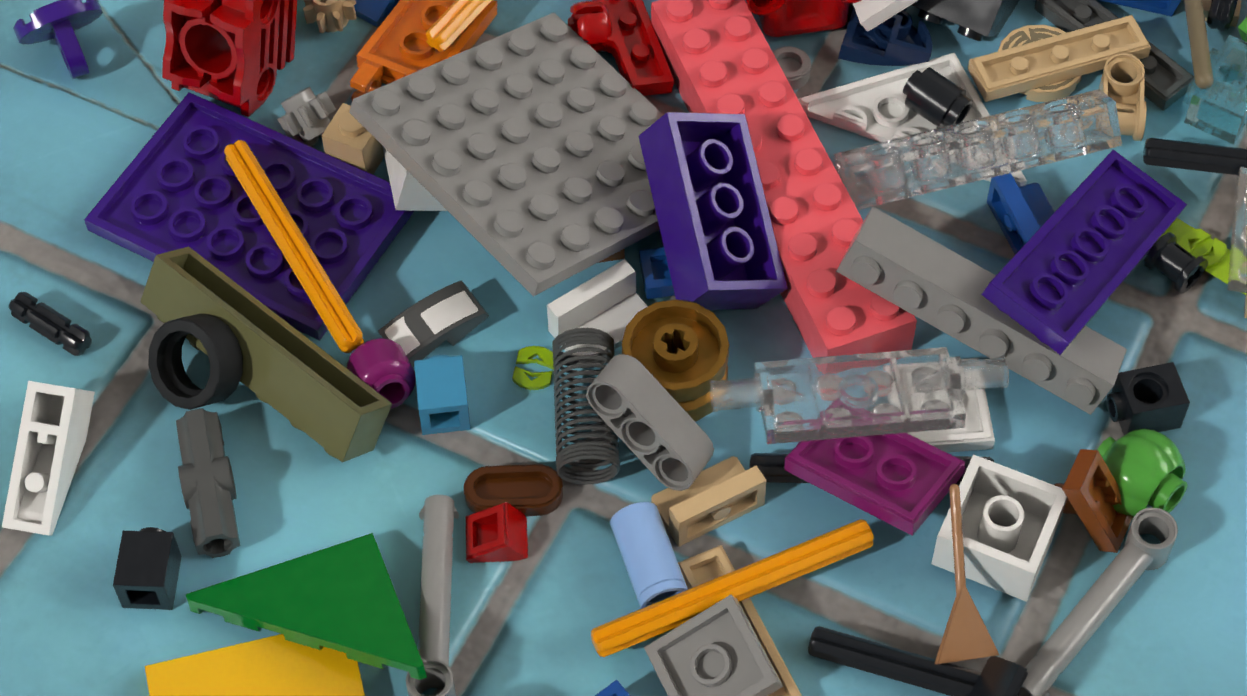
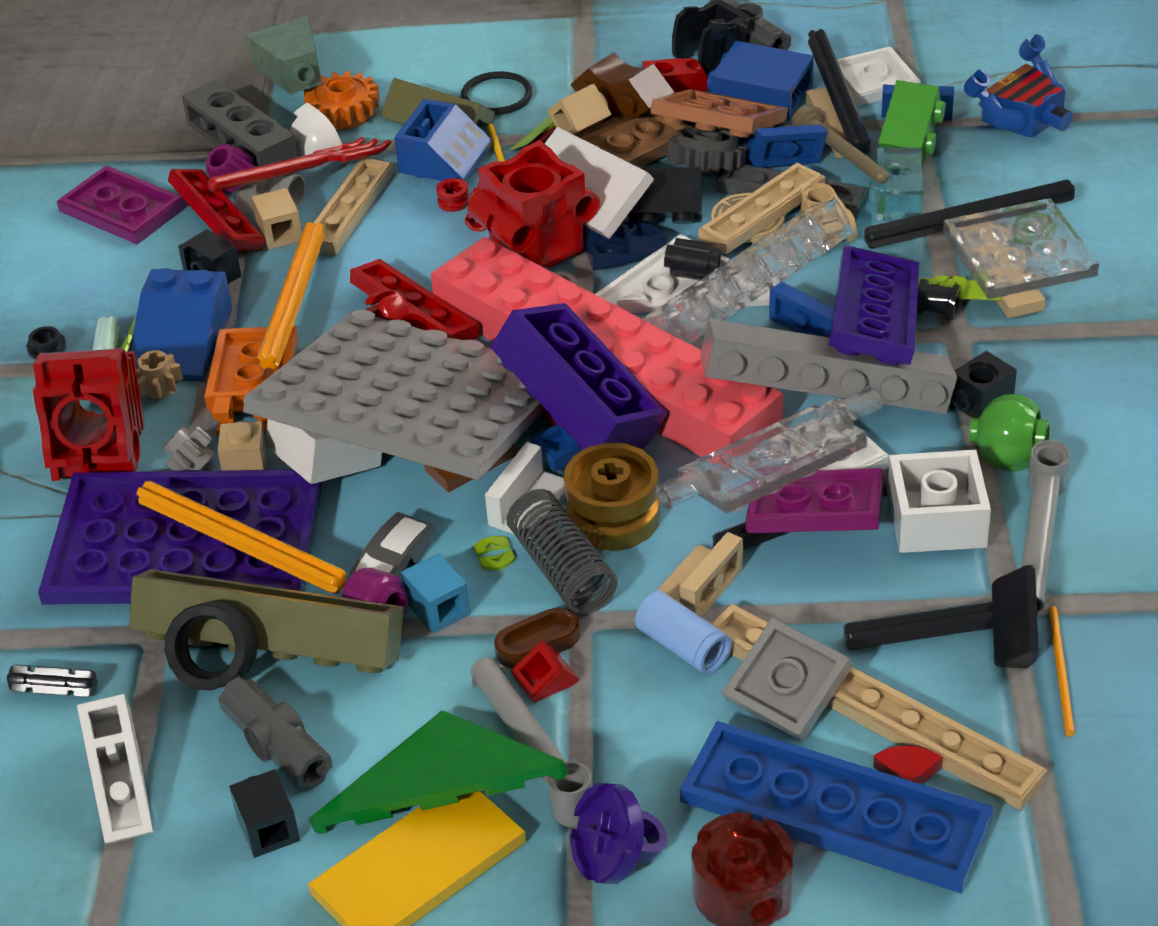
camera: 25 degrees left, 15 degrees down
(650, 422) = (632, 553): light grey beam -> none
(740, 583) = (779, 606): light orange axle -> none
(965, 631) = (961, 580): medium nougat piece -> none
(1091, 496) = (993, 454): dark orange tile -> none

